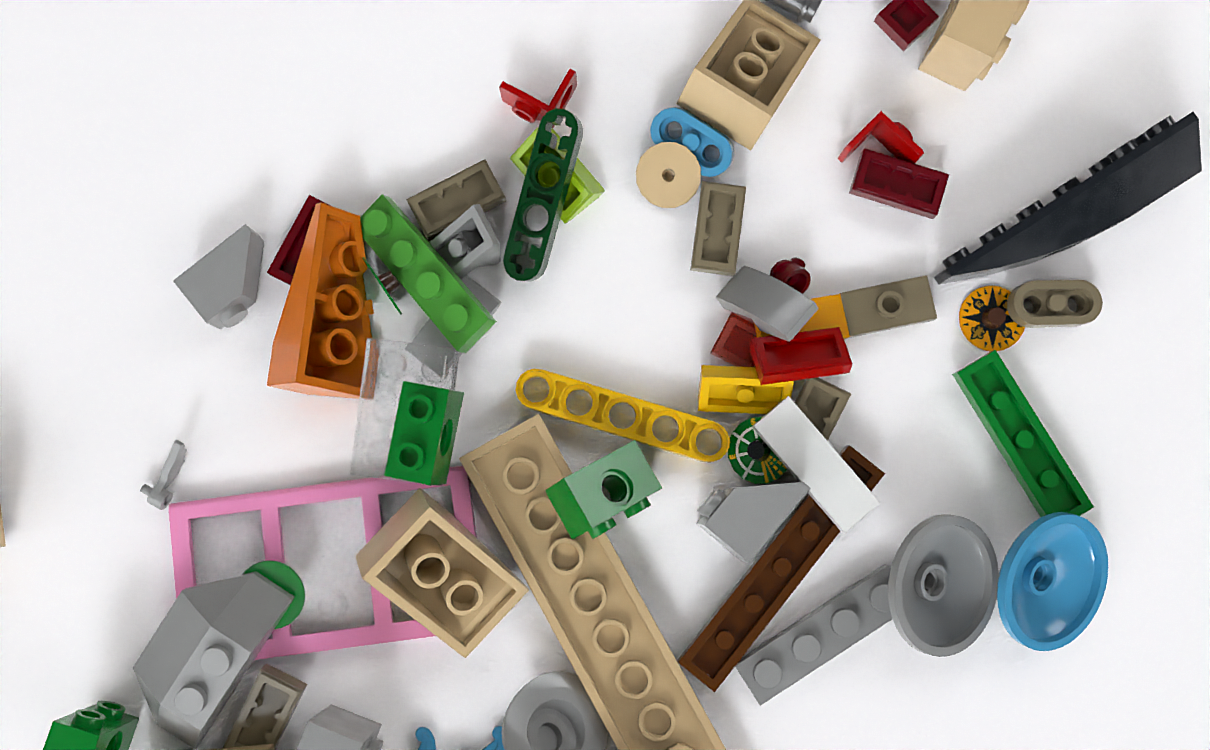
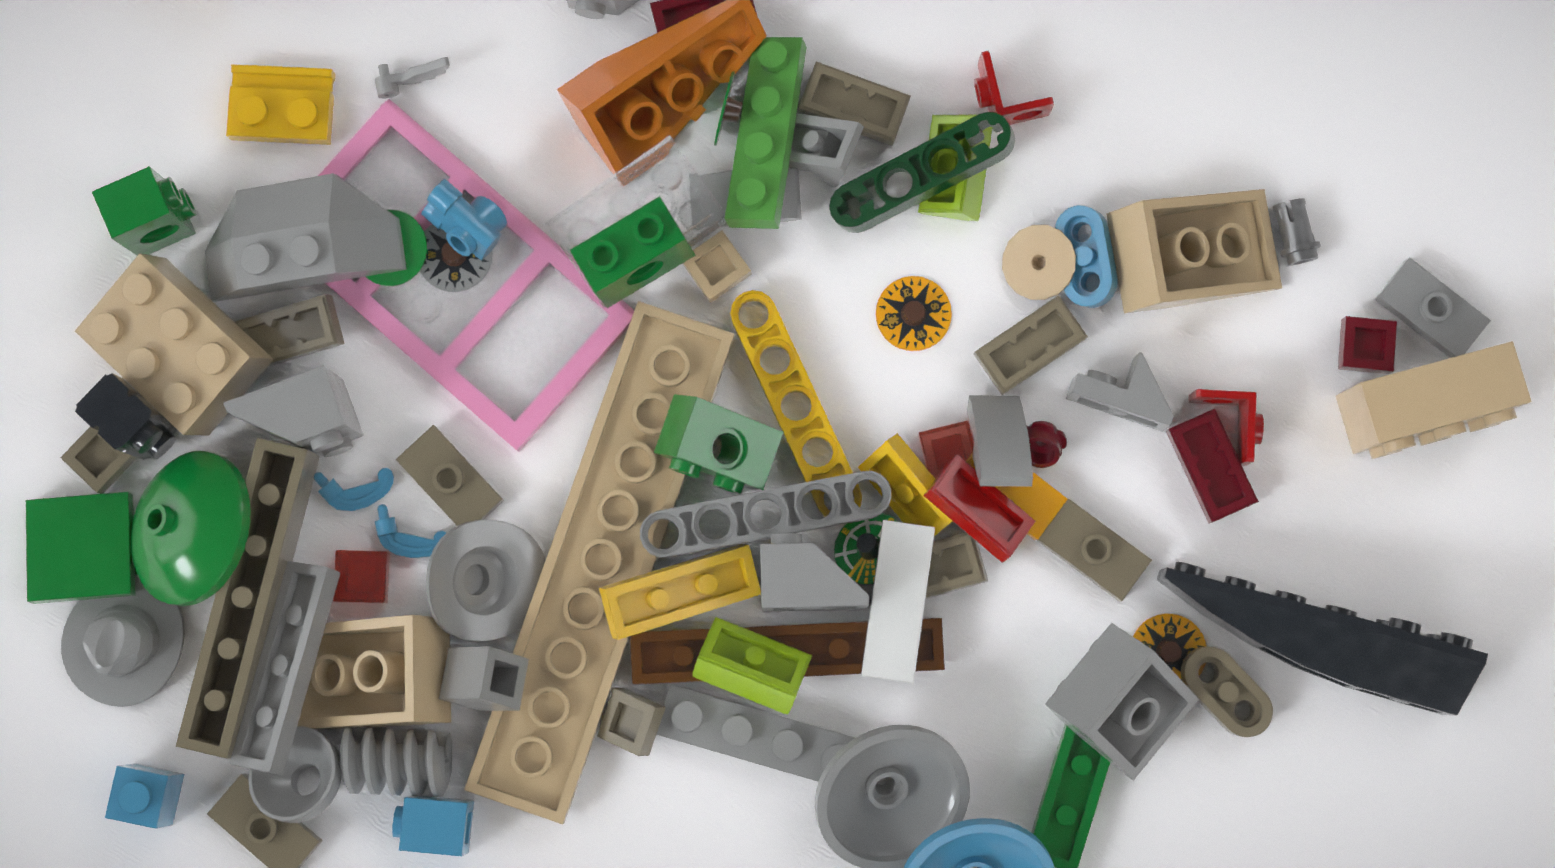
camera: 50 degrees right, 0 degrees up
(104, 581) = (281, 104): none -> yellow plate
(305, 527) = (468, 226): none -> dark azure plate
(316, 552) = (449, 269): none -> piece
(440, 573) = (530, 370): tan slope -> none
(464, 692) = (449, 478): none -> dark tan plate
(483, 385) = (717, 266): none -> tan plate
(628, 285) = (913, 313): none -> piece
(680, 605) = (680, 591): none -> yellow plate
(699, 487) = (788, 500): none -> light grey beam
(738, 715) = (631, 721): none -> dark tan plate
(773, 599) = (751, 665): none -> lime slope
(814, 191) = (1137, 401): none -> light grey slope
(1009, 375) = (1122, 700): none -> light grey slope

